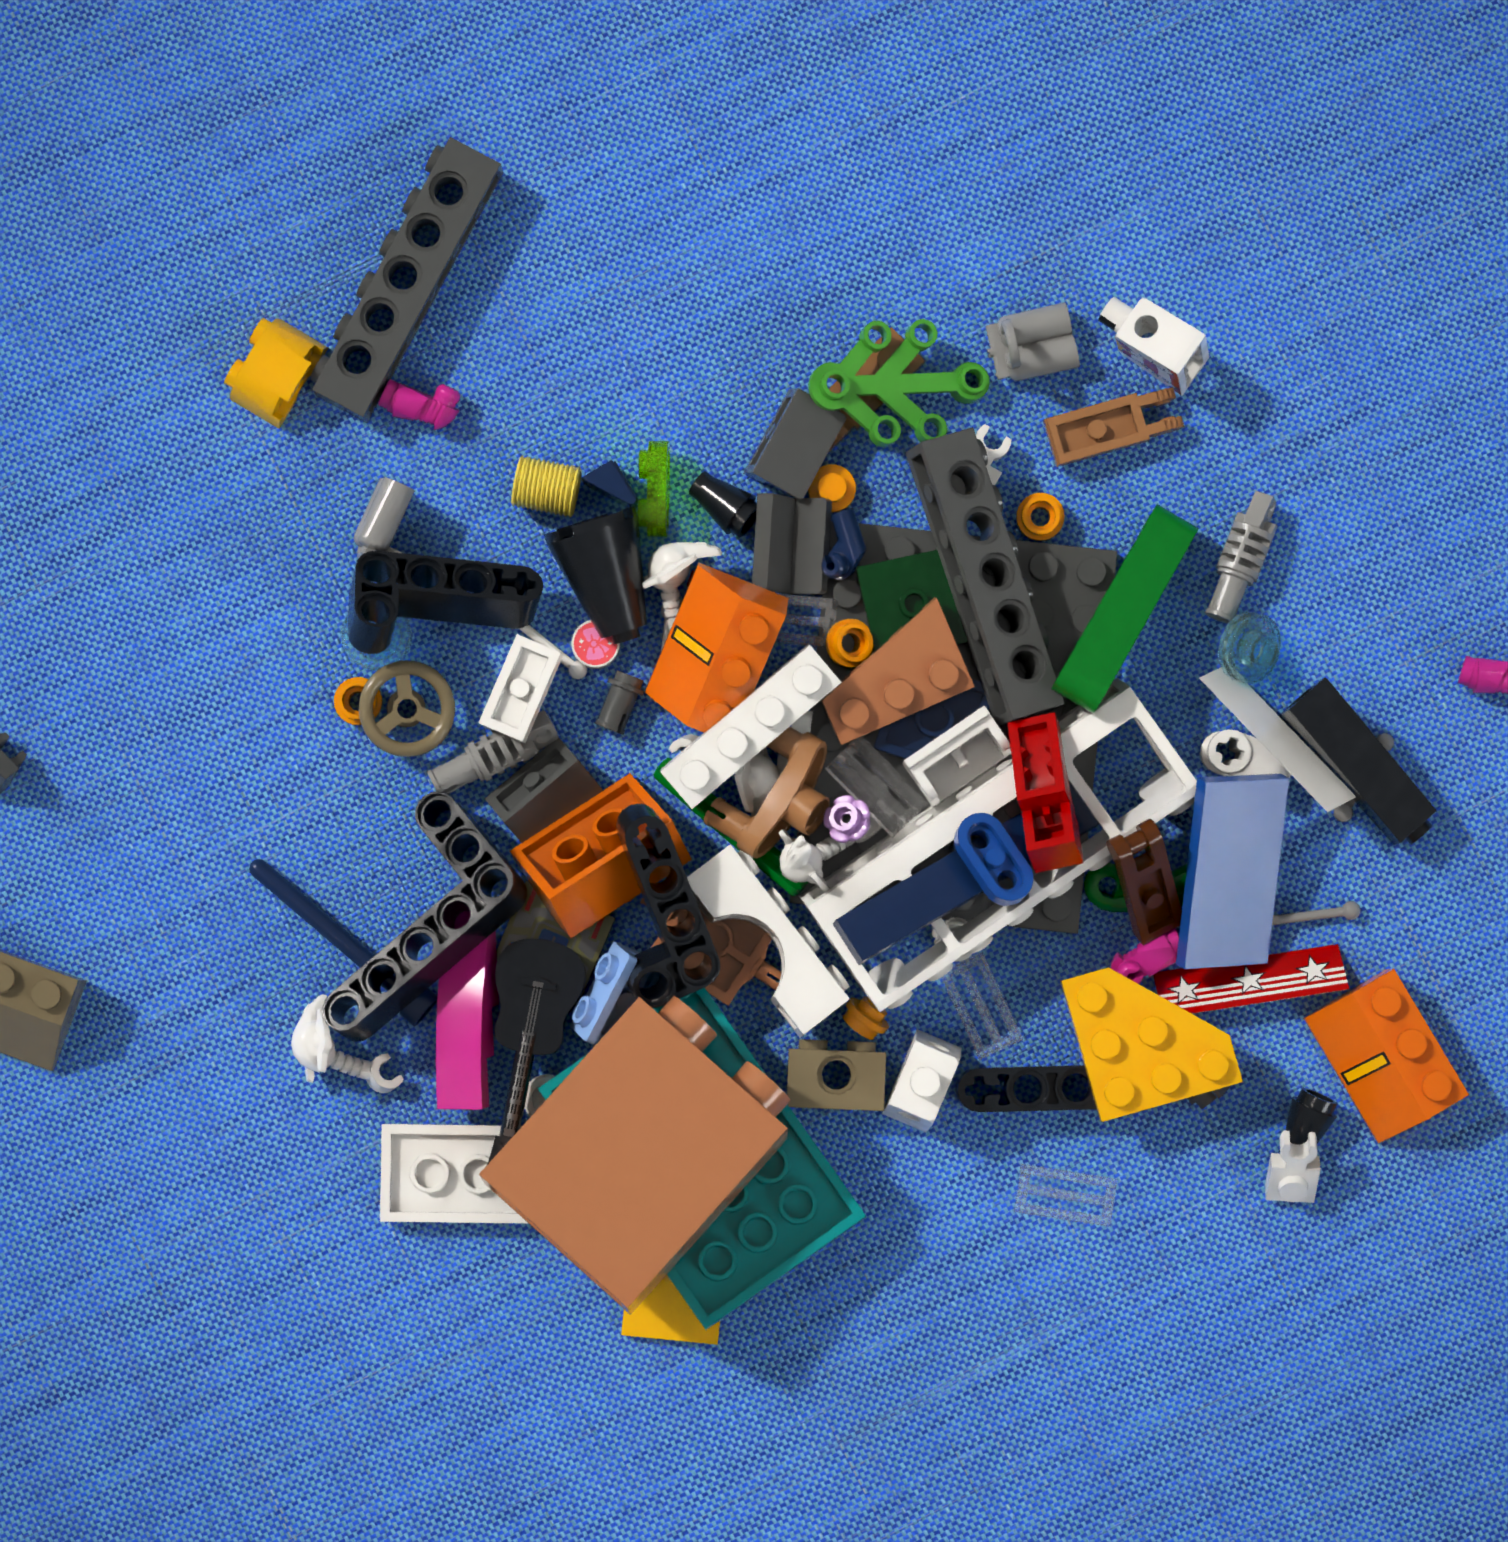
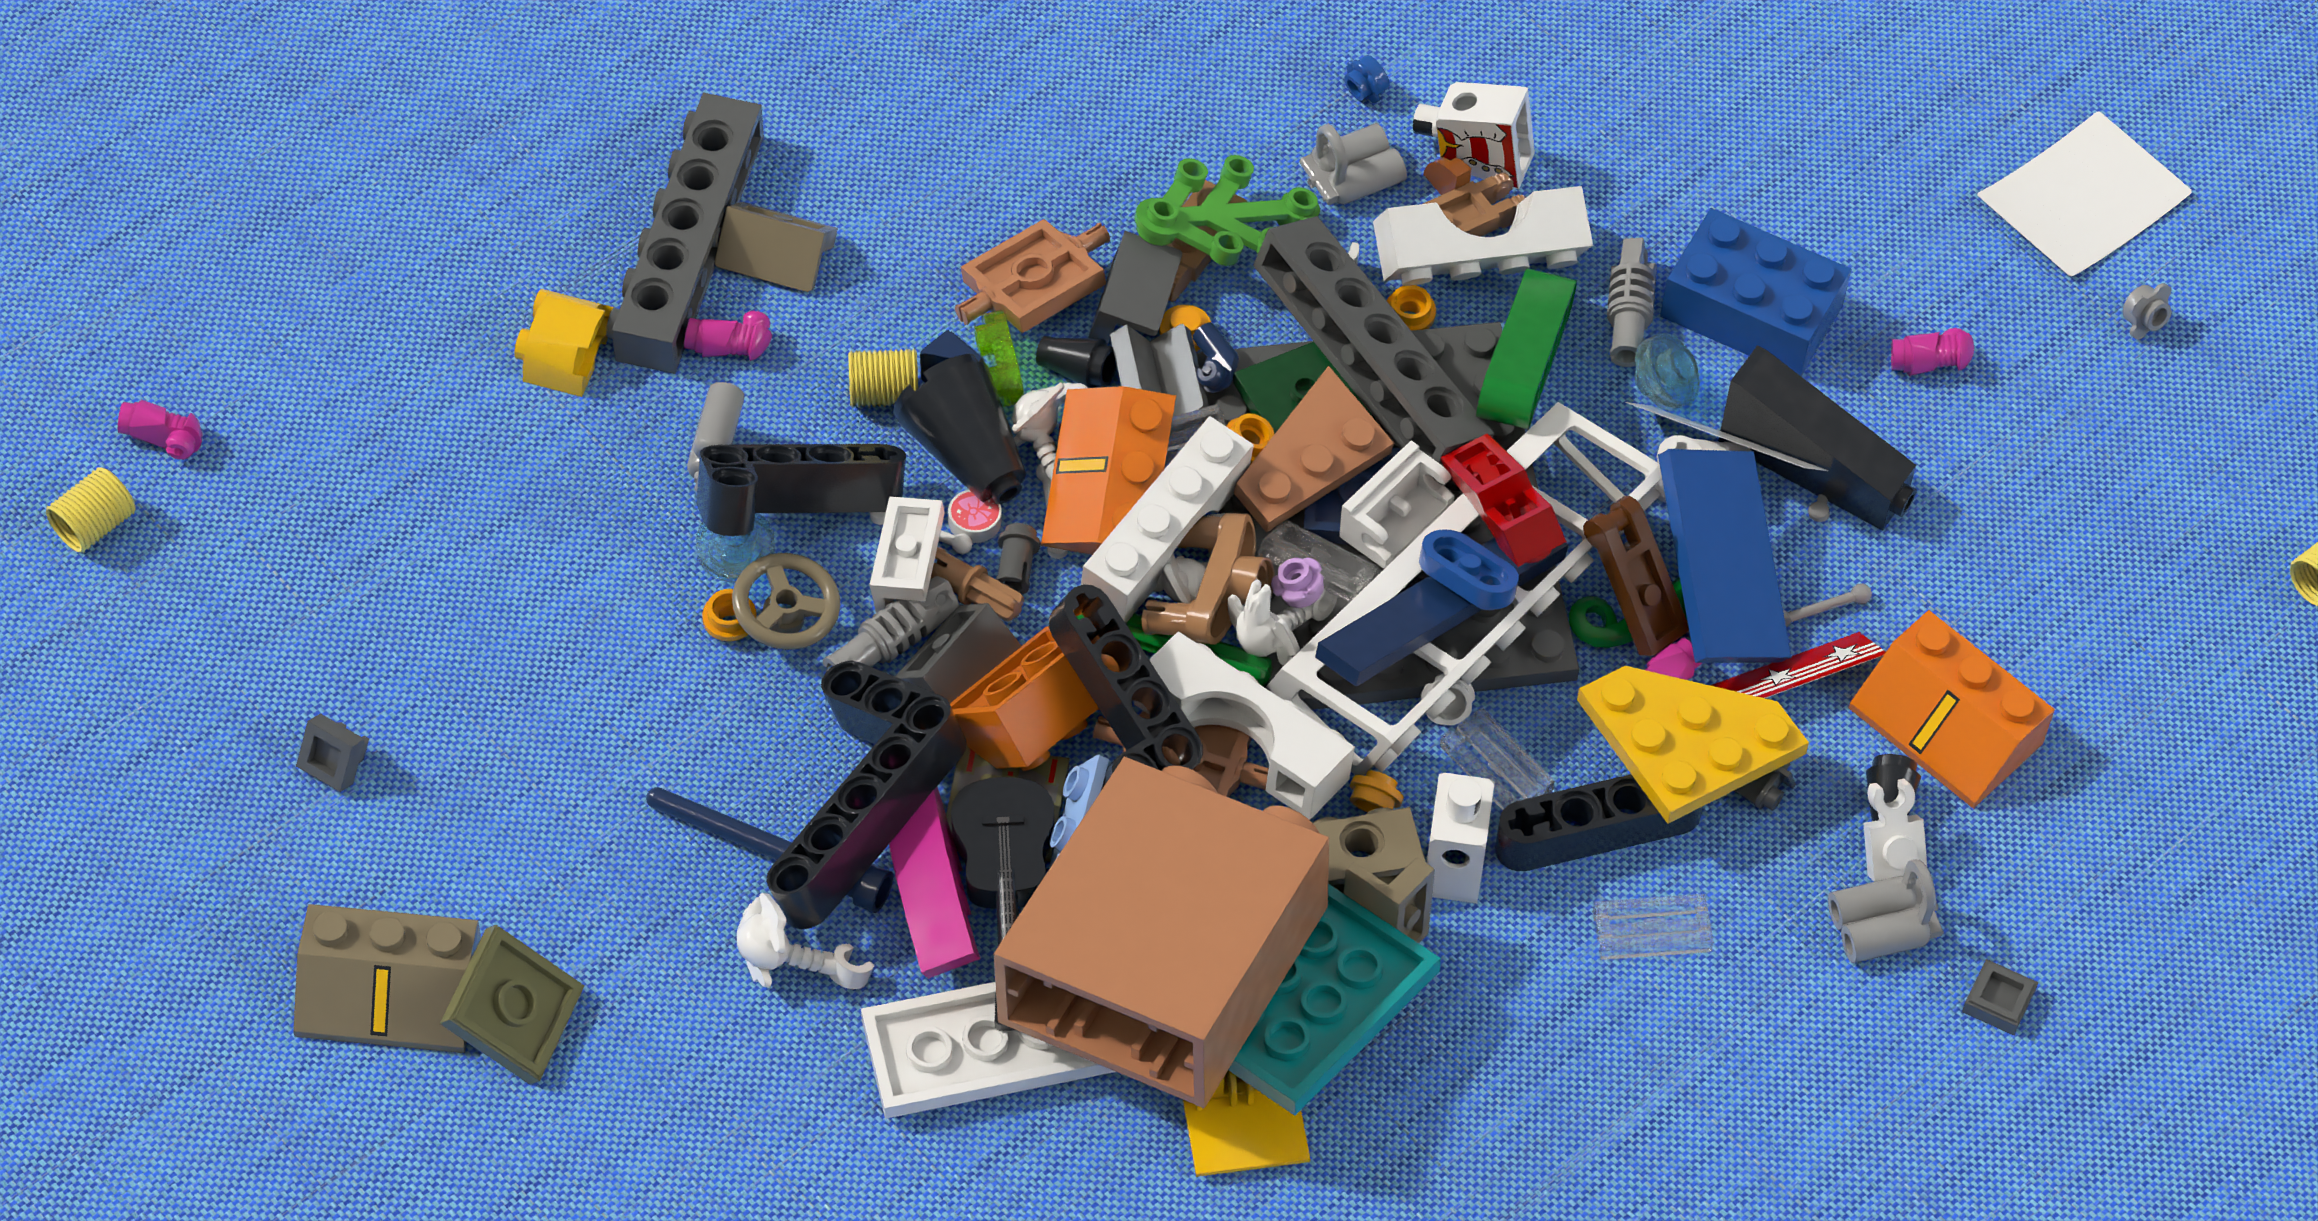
camera: 15 degrees left, 30 degrees down
(95, 1055) = (512, 1004): none -> olive tile
(484, 307) = (773, 245): none -> dark tan panel
(577, 724) = (976, 586): none -> medium nougat axle
(707, 405) = (1033, 275): none -> nougat plate
(848, 1156) = (1401, 903): none -> dark tan panel
(1073, 245) = (1366, 79): none -> blue plate
(1118, 378) = (1447, 174): none -> dark orange tile
(1183, 469) = (1424, 243): none -> white arch
(1263, 1238) = (1887, 914): none -> light grey piece
(1335, 1331) = (2000, 997): none -> dark grey tile
(1357, 579) = (1754, 291): none -> blue brick

